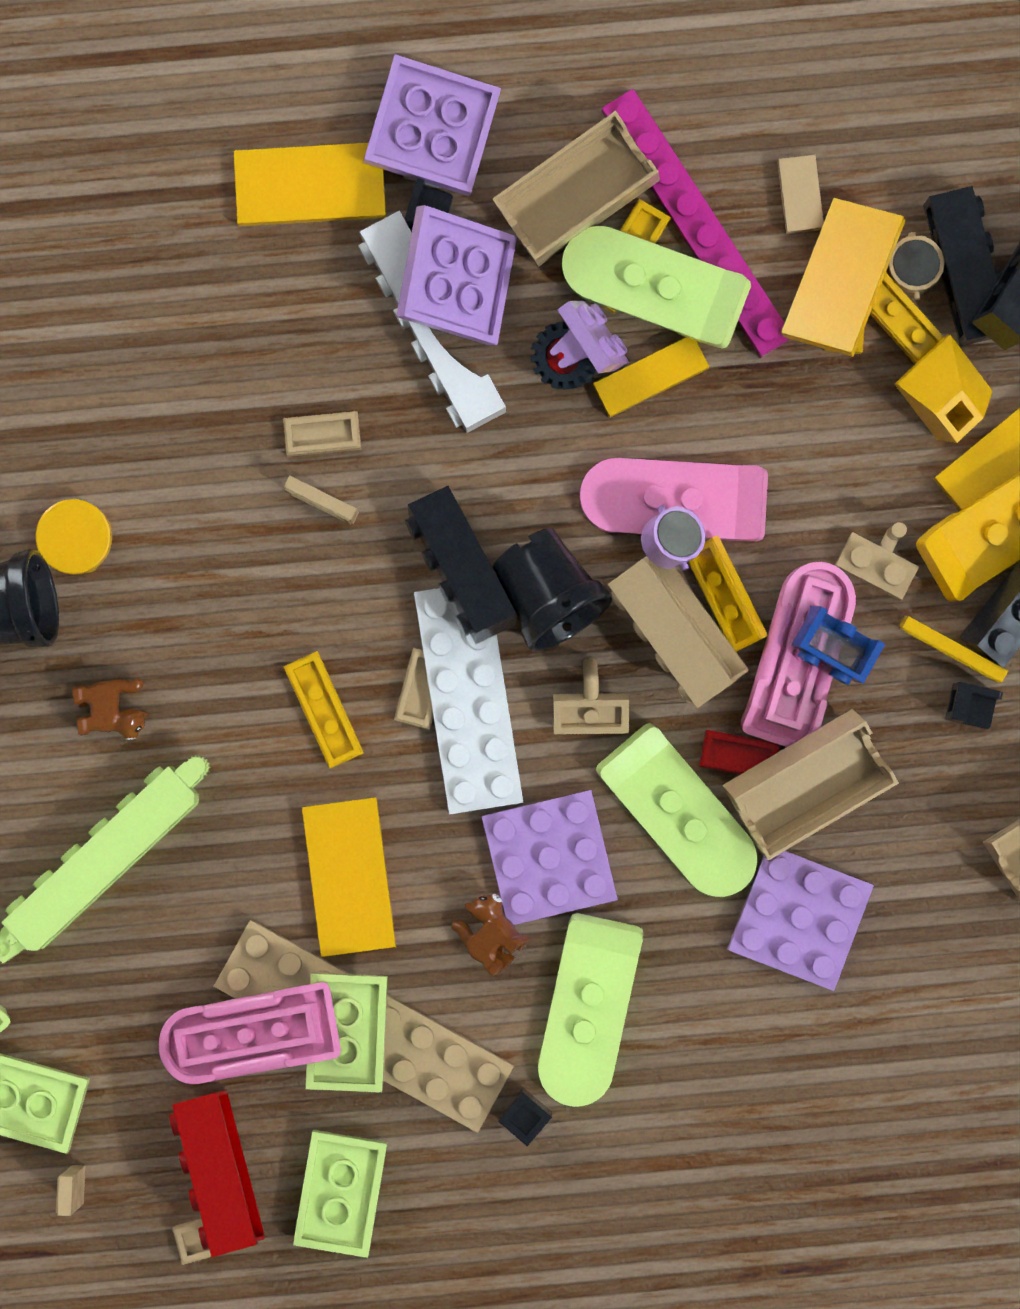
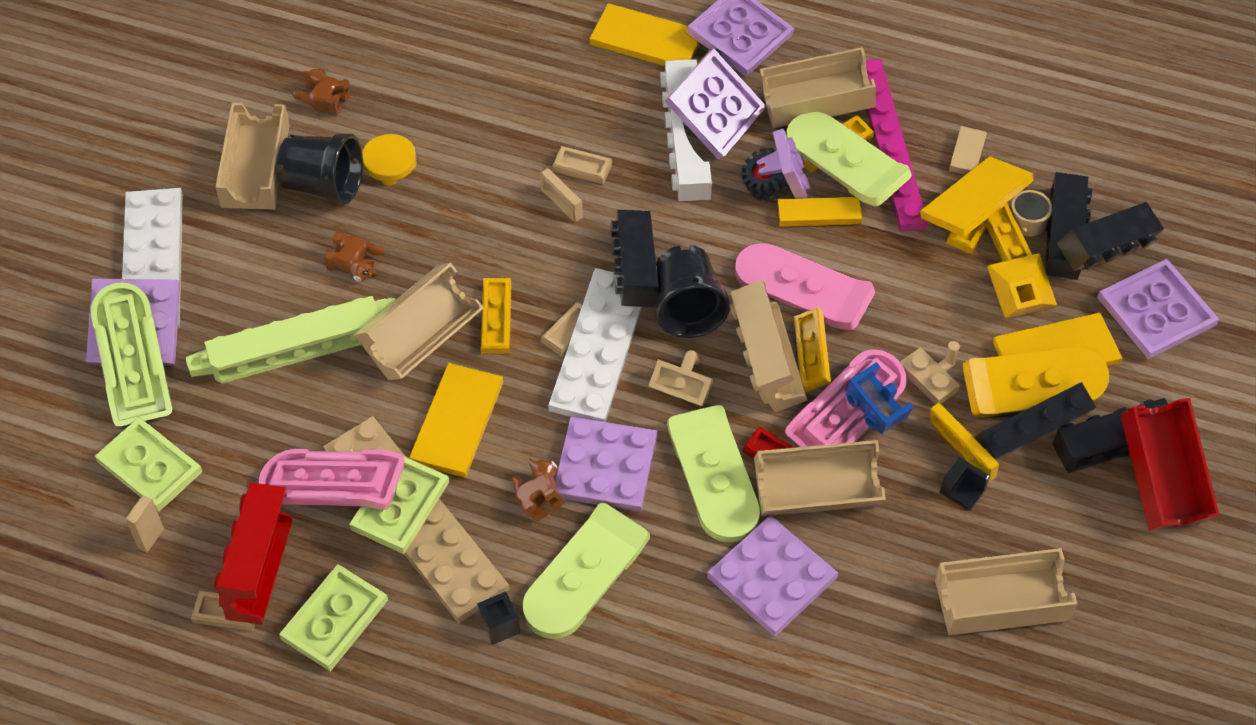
camera: 25 degrees right, 30 degrees down
(245, 780) = (417, 322): none -> tan brick
(673, 537) = (790, 292): piece -> none

